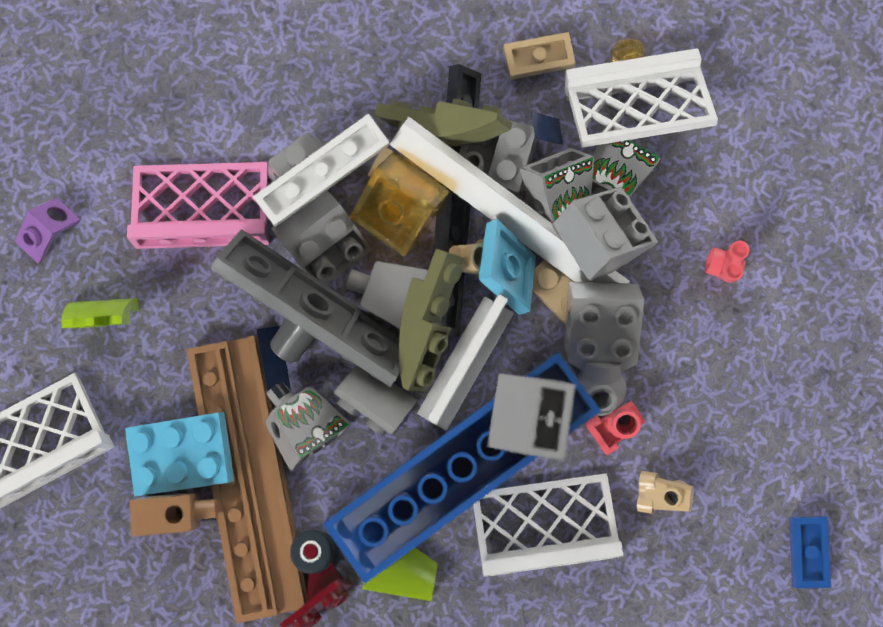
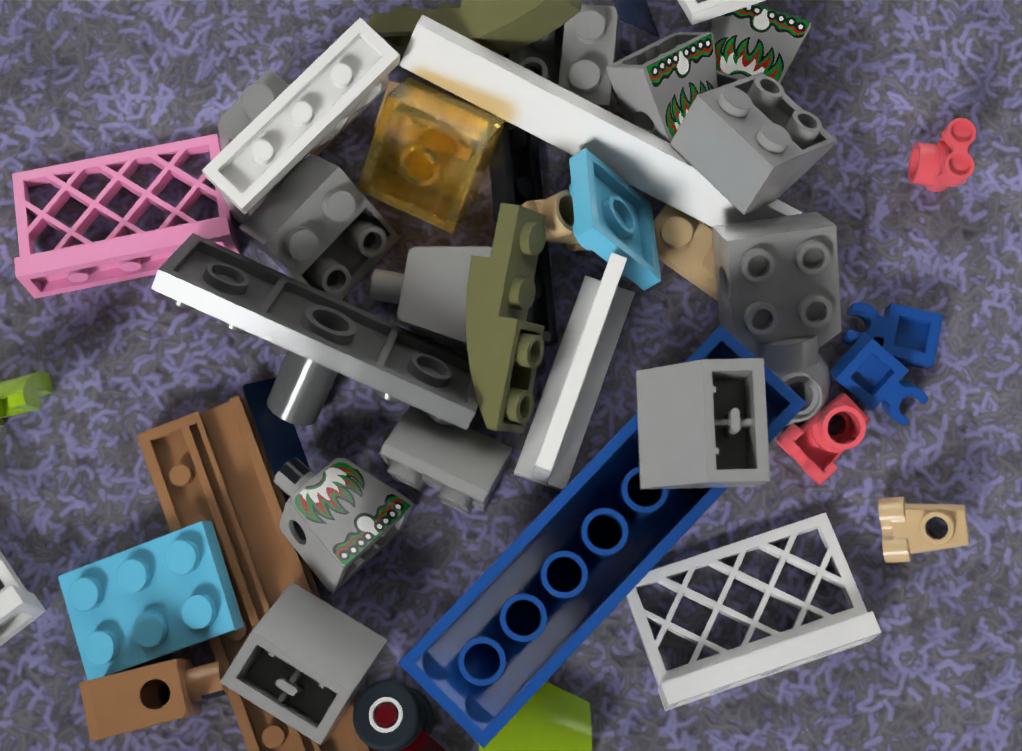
camera: 10 degrees left, 5 degrees down
(267, 510) = (304, 662): none -> light grey slope
(654, 394) = (876, 378): none -> blue plate
(678, 369) = (903, 331): none -> blue plate

